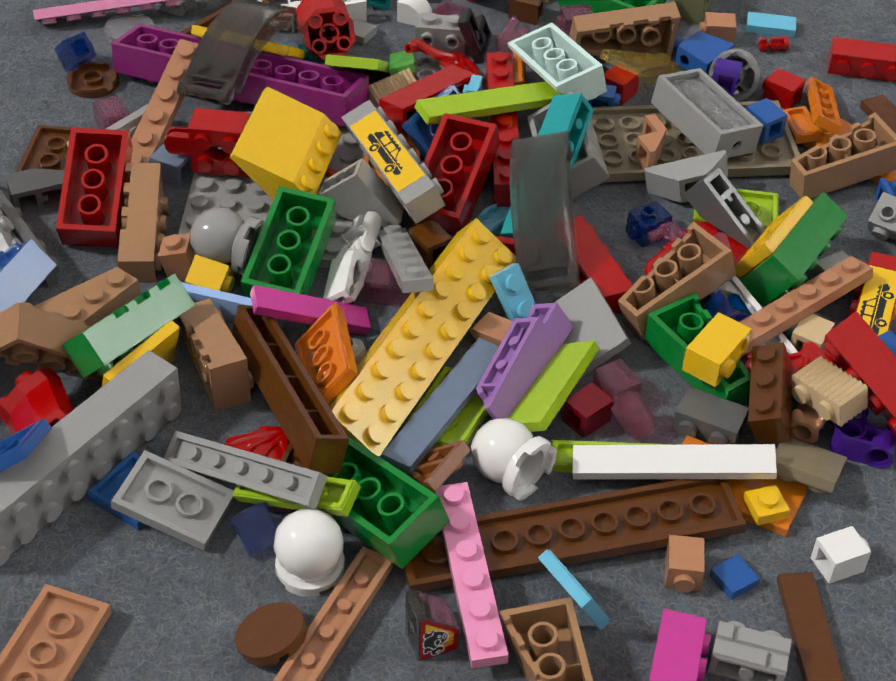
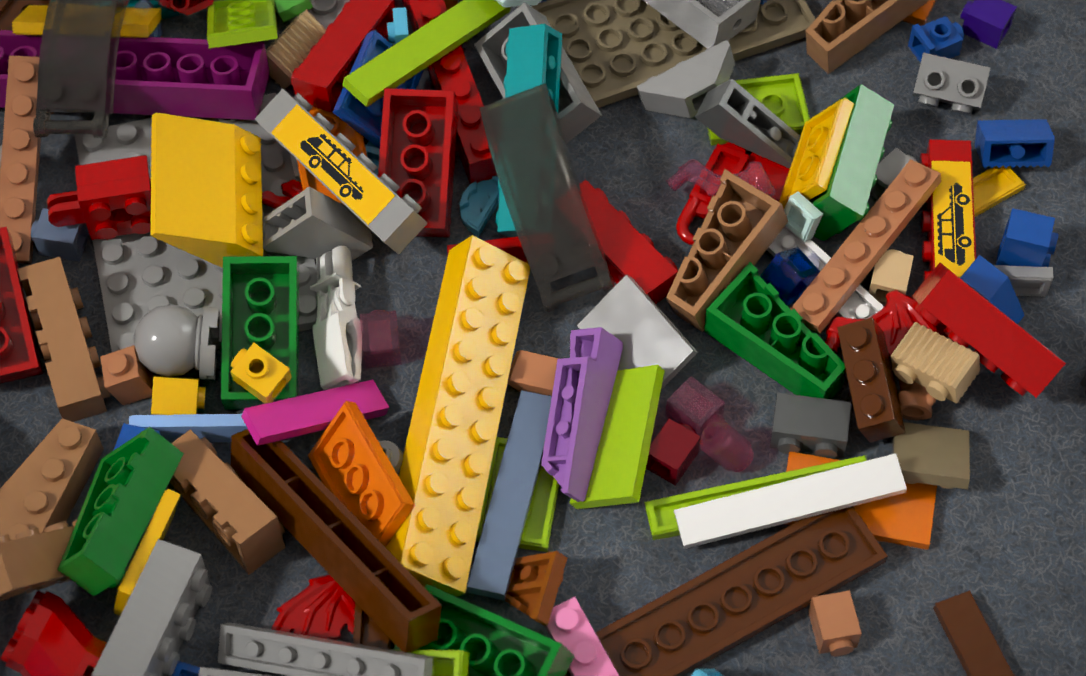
camera: 15 degrees left, 15 degrees up
(276, 266) = (260, 373): none -> yellow brick
(404, 260) = (404, 314): light grey plate -> none
(429, 240) = (418, 267): reddish brown brick -> none
(511, 456) = (606, 543): white tile -> none
(513, 292) = (544, 320): medium azure plate -> none
(645, 219) = (661, 162): clear blue brick -> none
(651, 142) = (634, 52): nougat slope -> none
(716, 349) = (800, 345): yellow brick -> none
(734, 577) = (889, 619): blue tile -> none
(748, 274) = (802, 216): none -> light aqua tile
(766, 505) = (900, 521): yellow plate -> none
(841, 554) = (994, 560): white brick -> none
(863, 442) = (988, 407): dark purple piece -> none

